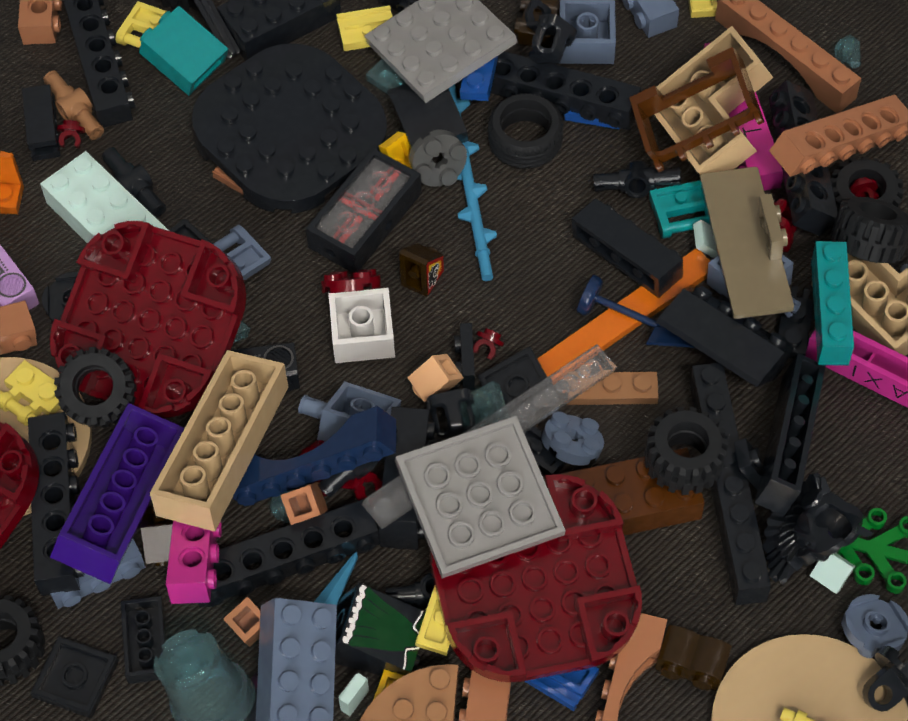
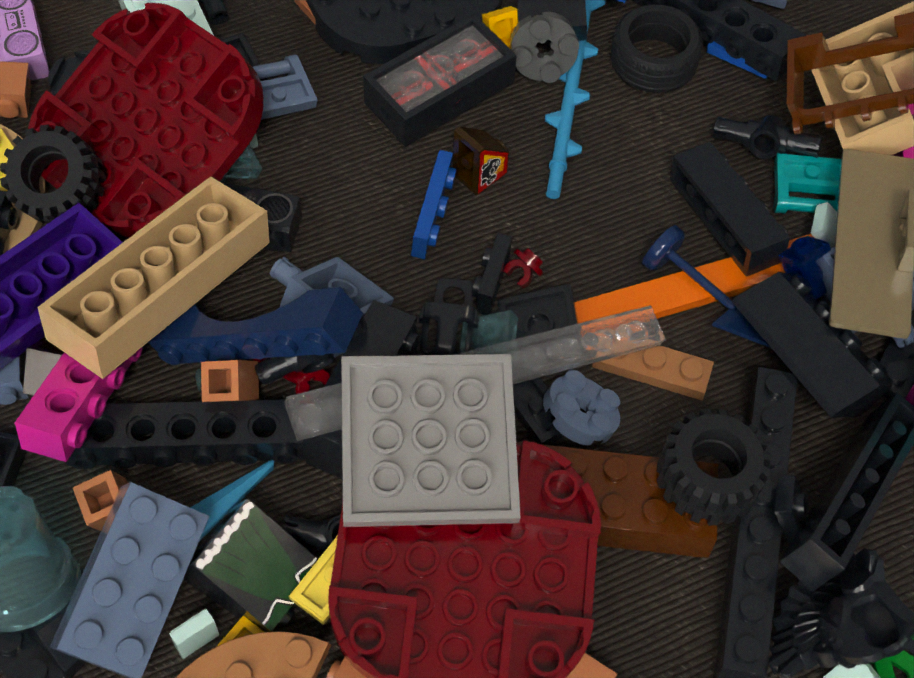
camera: 15 degrees right, 0 degrees up
(341, 282) = (392, 148): dark red plate -> none
(361, 325) = (383, 201): white brick -> none
(400, 315) = (434, 205): none -> blue plate
(435, 376) = (444, 282): light nougat brick -> none
(696, 273) = (802, 259): none -> clear blue bracket

